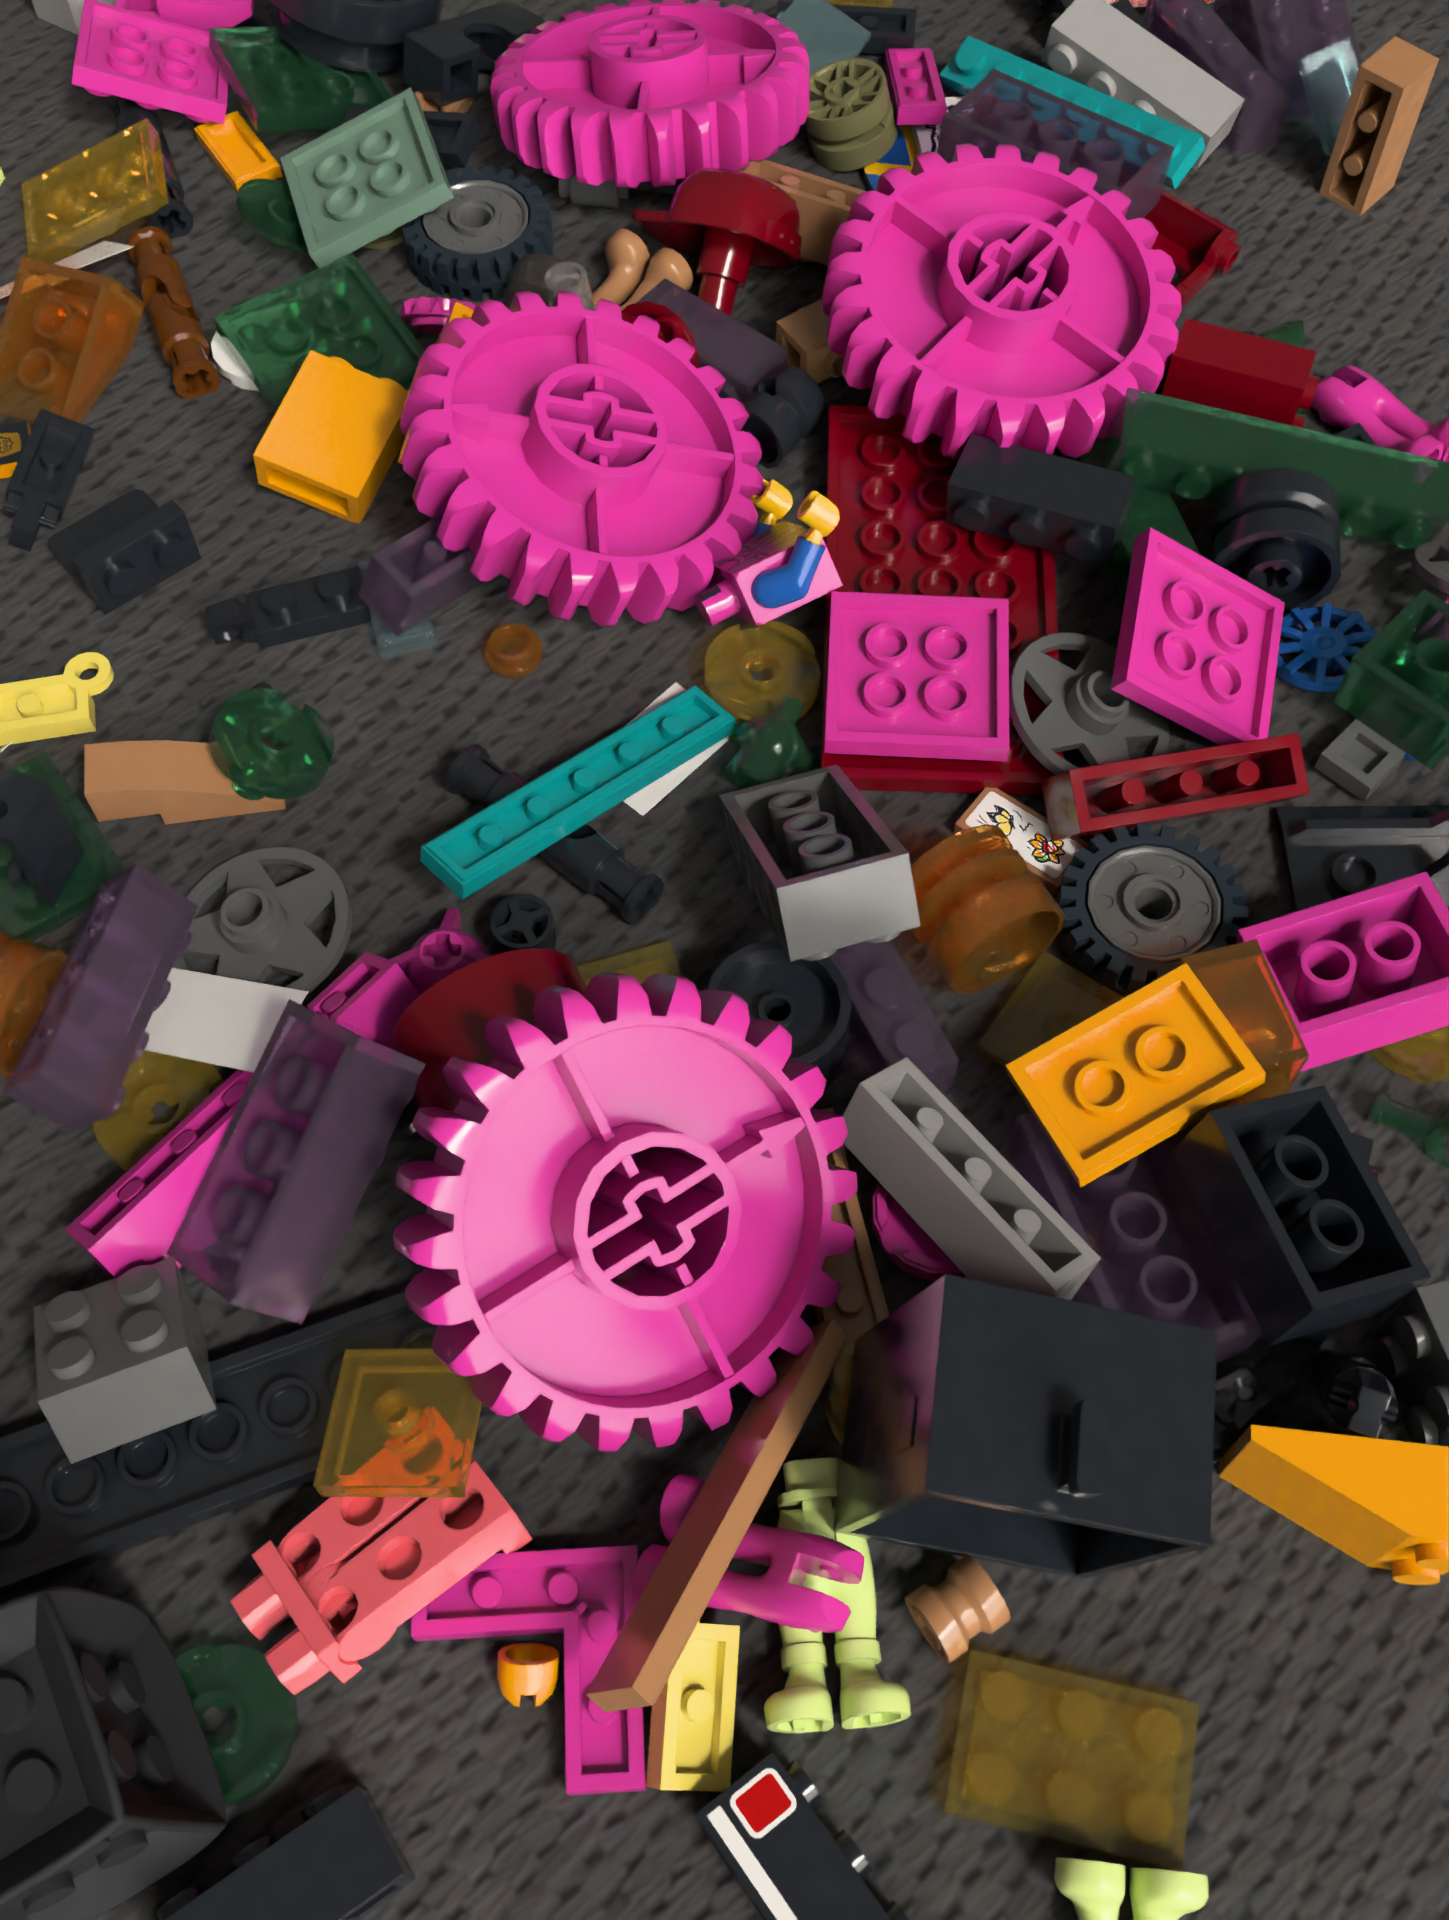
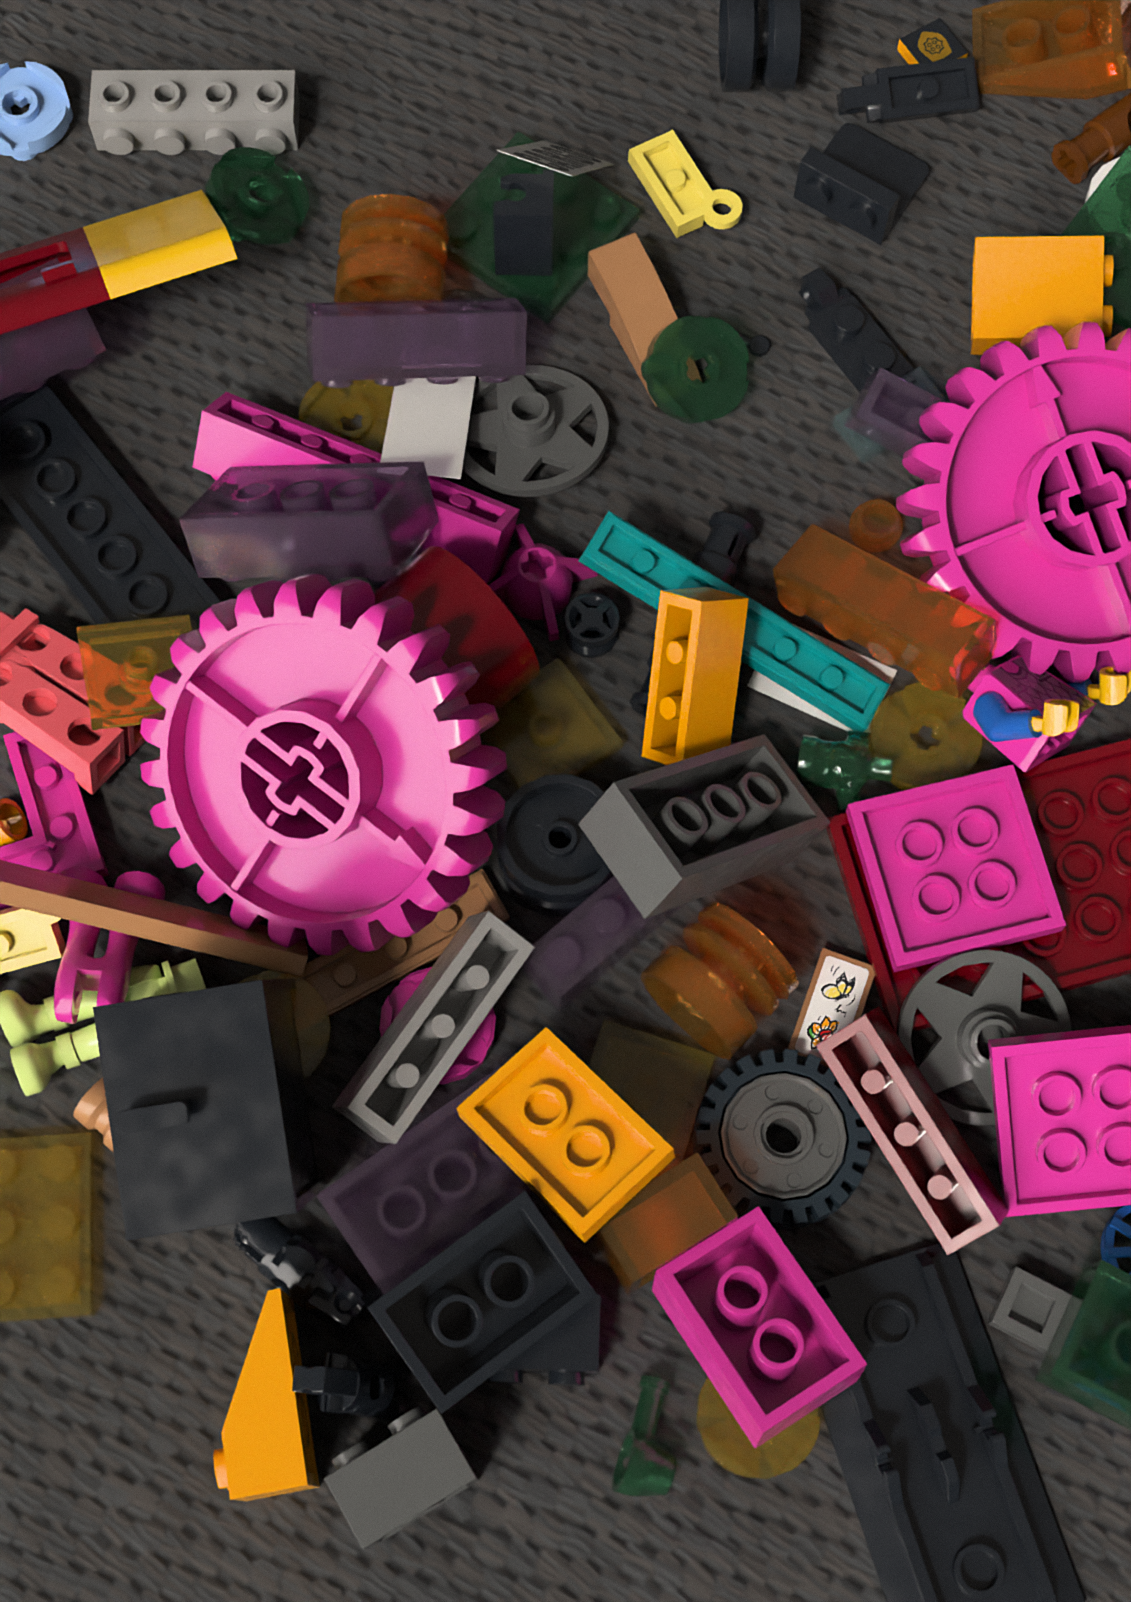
camera: 70 degrees right, 10 degrees up
(121, 1360) = (136, 467): dark grey brick -> none
(625, 651) = (885, 611): none -> clear orange brick
(642, 828) = (694, 673): none -> light orange brick

